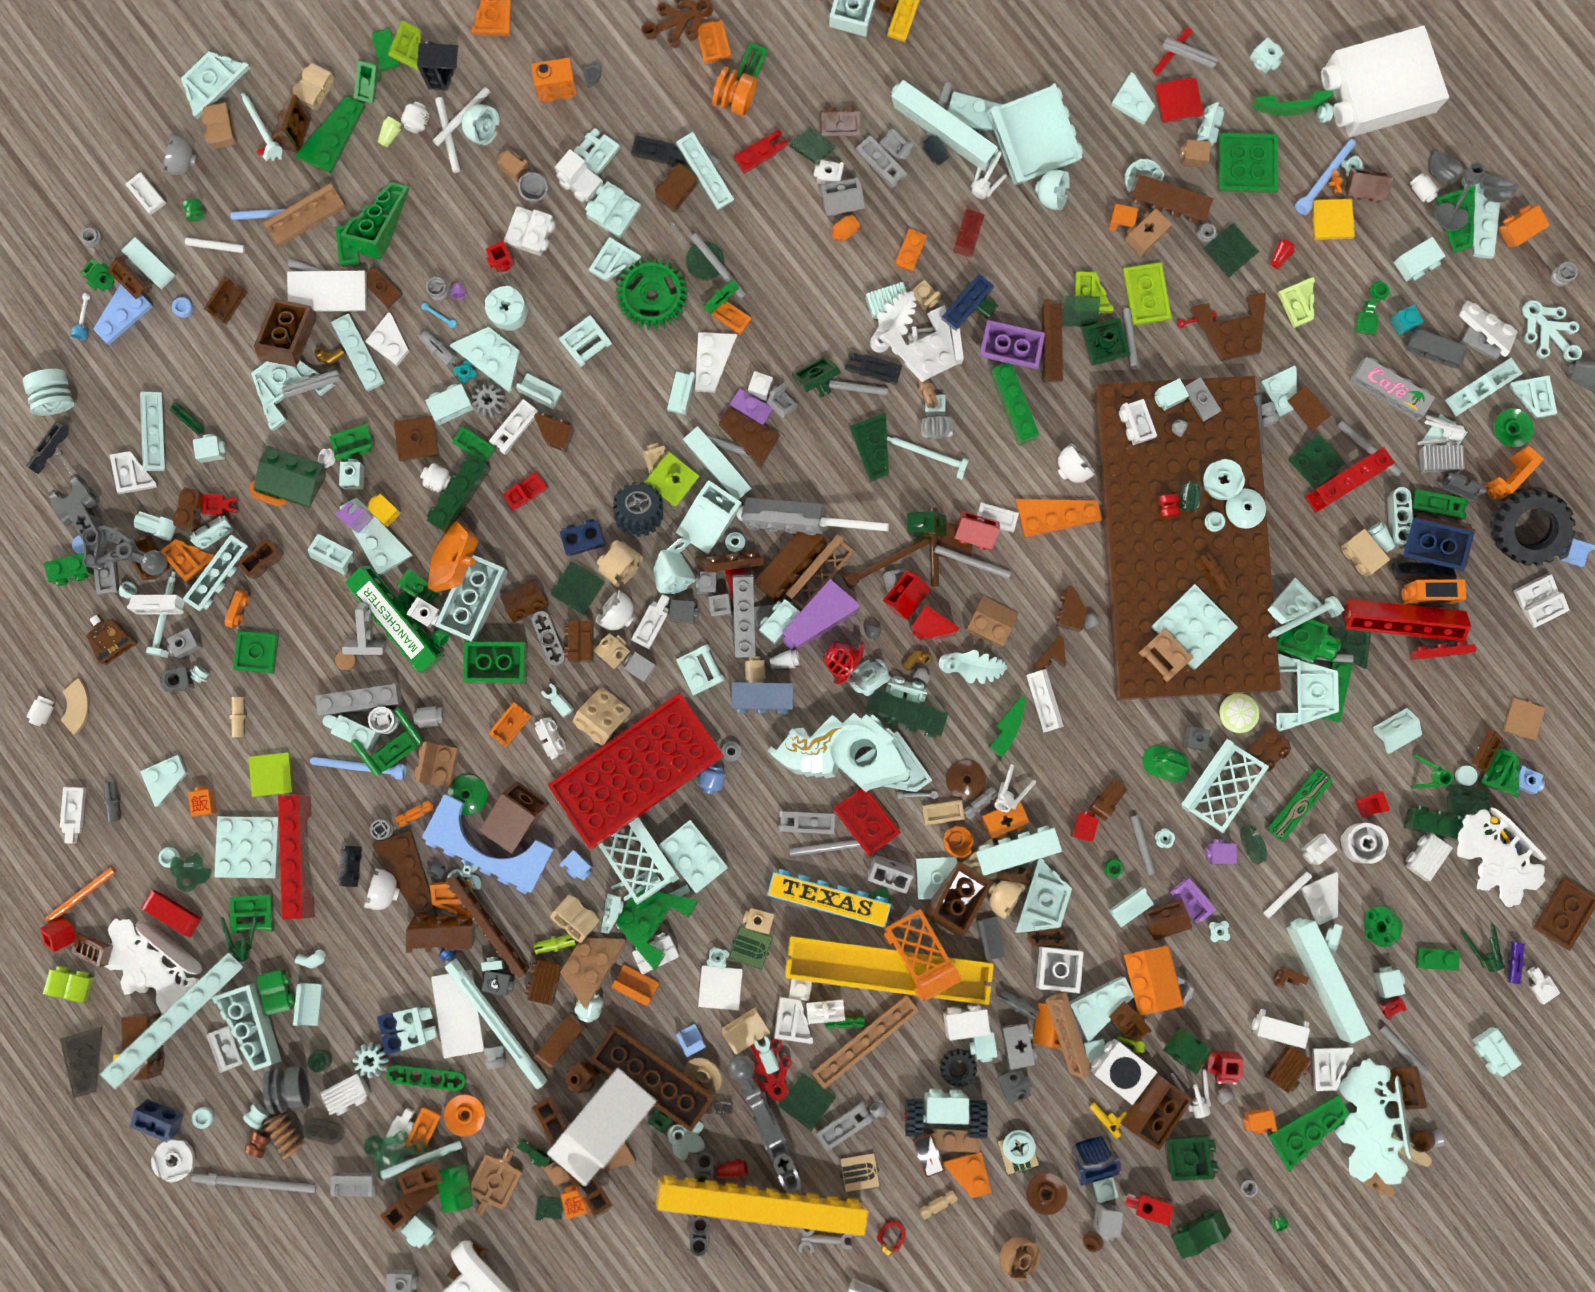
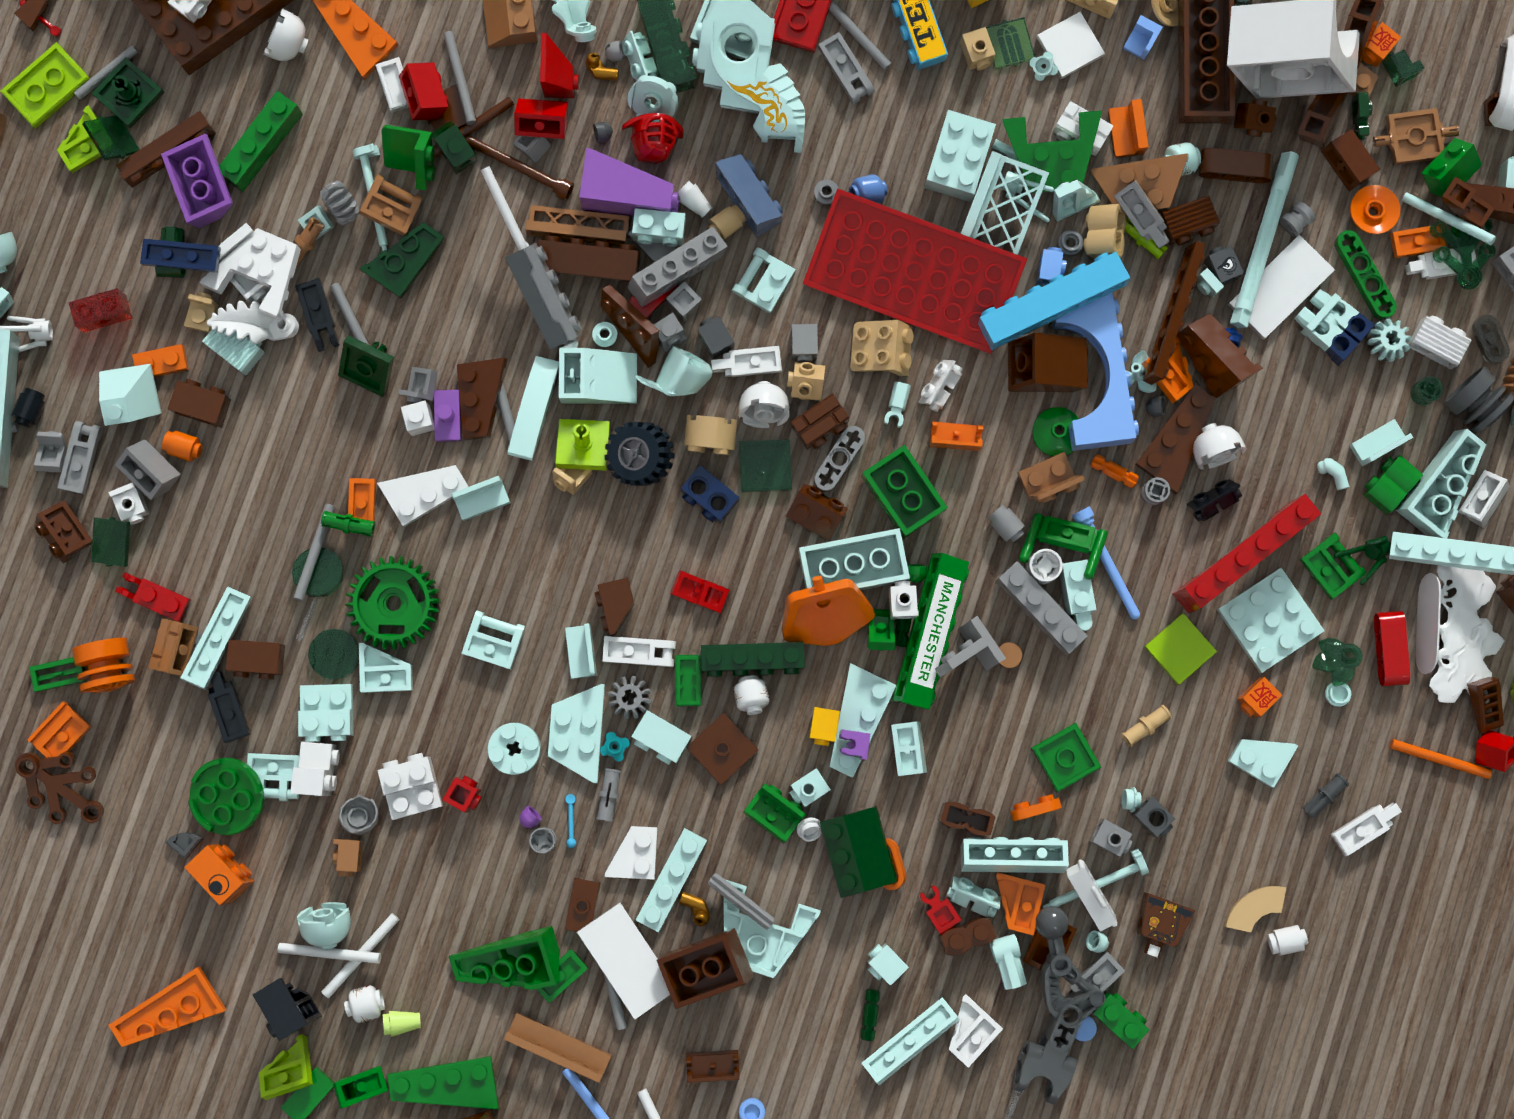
camera: 125 degrees left, 0 degrees up
(509, 1123) = (1350, 160): none -> reddish brown hinge
(548, 846) = (1053, 300): none -> medium azure brick
(567, 949) = (1142, 213): none -> light grey hinge
(581, 896) = (1075, 237): none -> light grey plate
(602, 115) = (226, 796): none -> green tile
(646, 238) = (334, 654): none -> clear green tile
(717, 141) = (173, 647): none -> medium nougat brick
(865, 256) = (199, 403): none -> reddish brown brick
(900, 214) = (128, 394): none -> light aqua slope
(910, 454) = (386, 211): none -> medium nougat plate
(941, 495) = (409, 151): none -> green bracket

